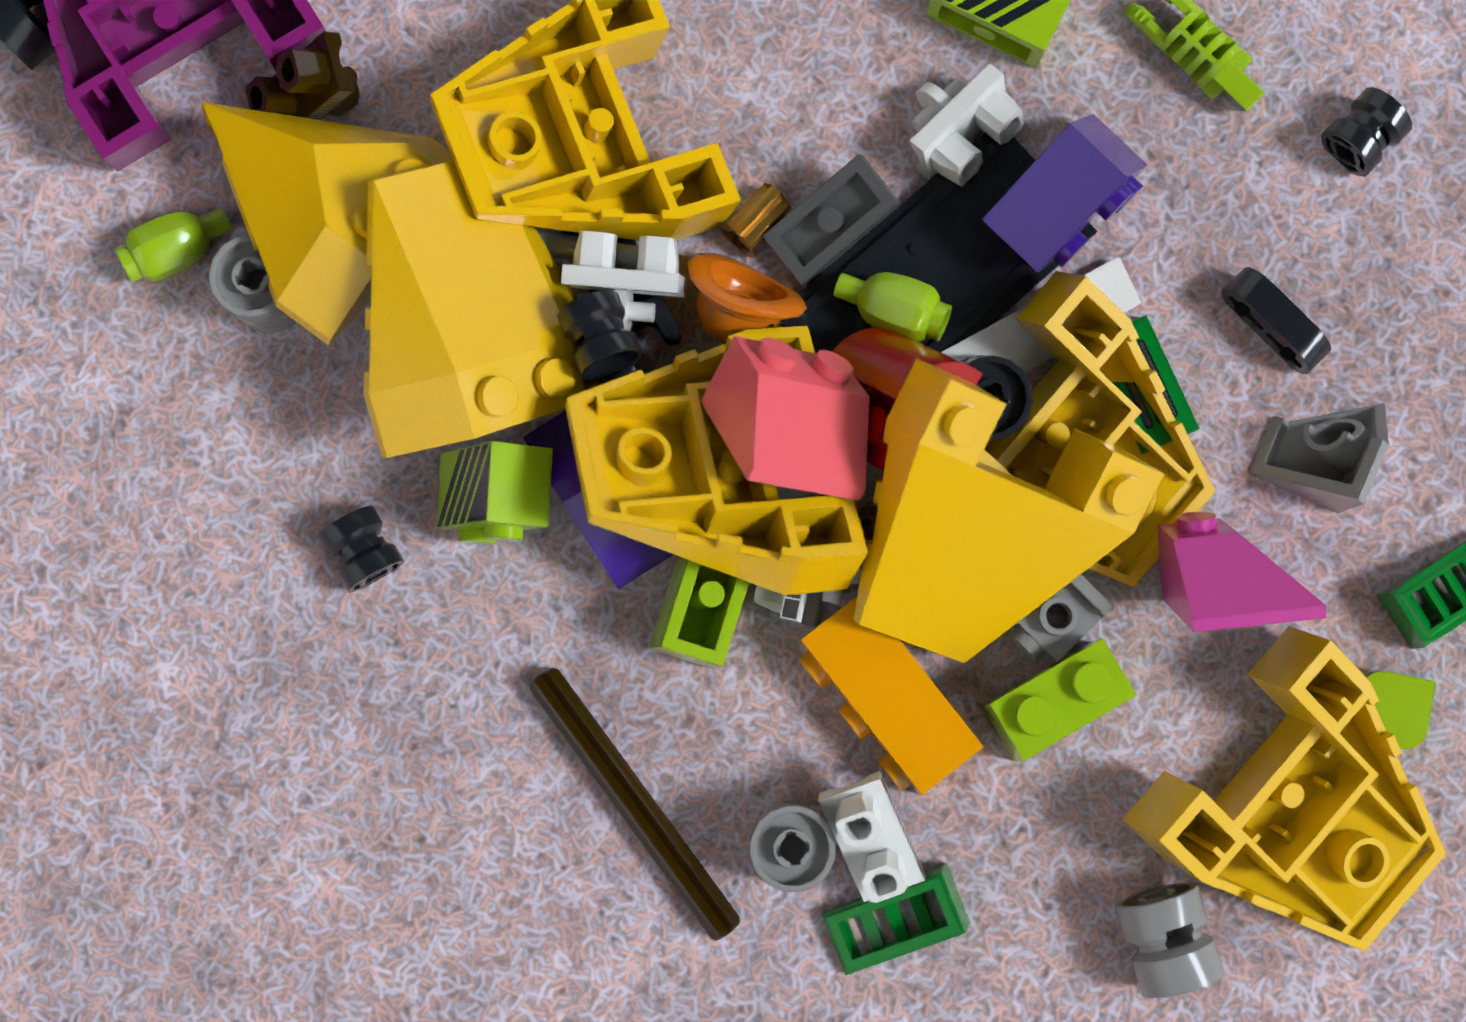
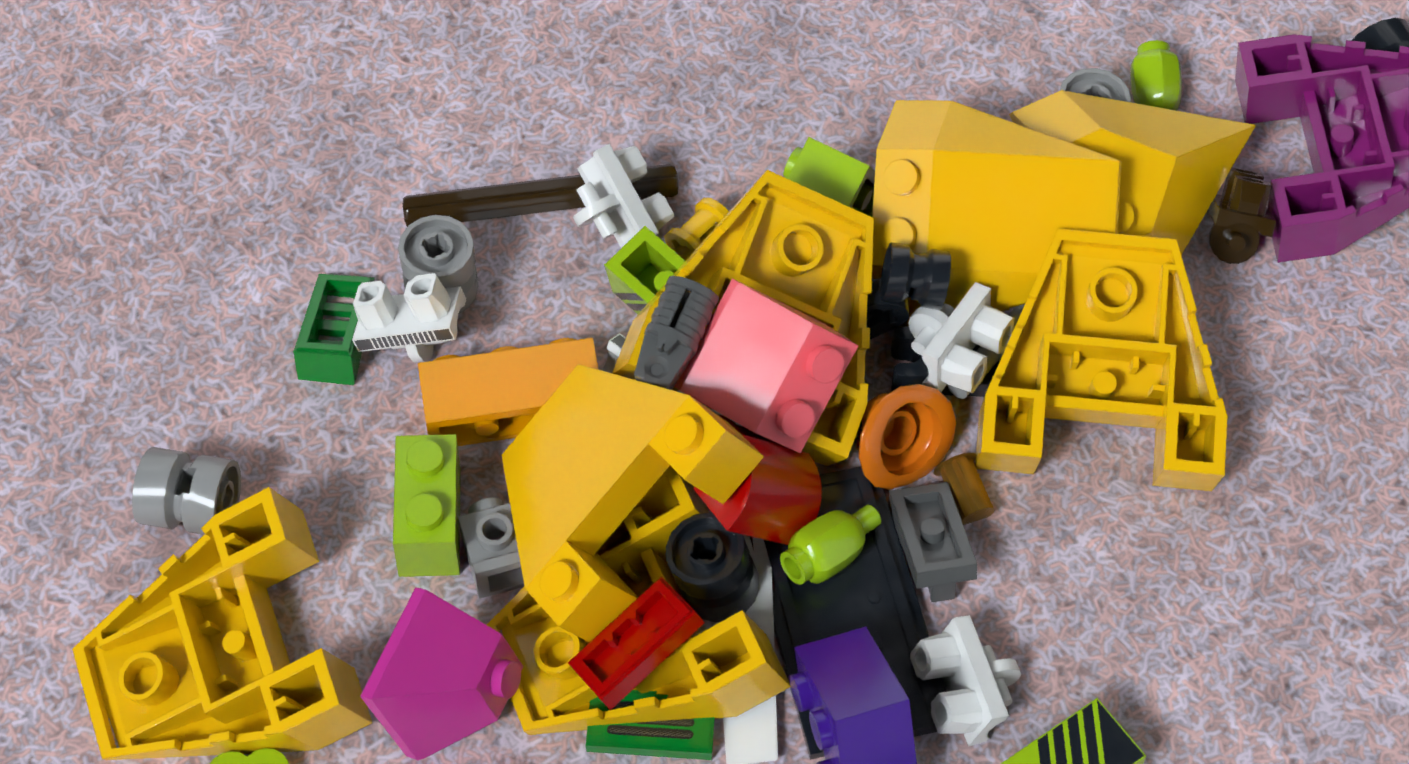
camera: 115 degrees right, 25 degrees down
(362, 552) = (844, 102): black wheel -> none
(601, 610) = (706, 217): none -> yellow bush
(626, 683) = (613, 200): none -> white hips
(825, 514) = (674, 331): none -> dark grey hinge
(1118, 411) = (636, 643): none -> red plate

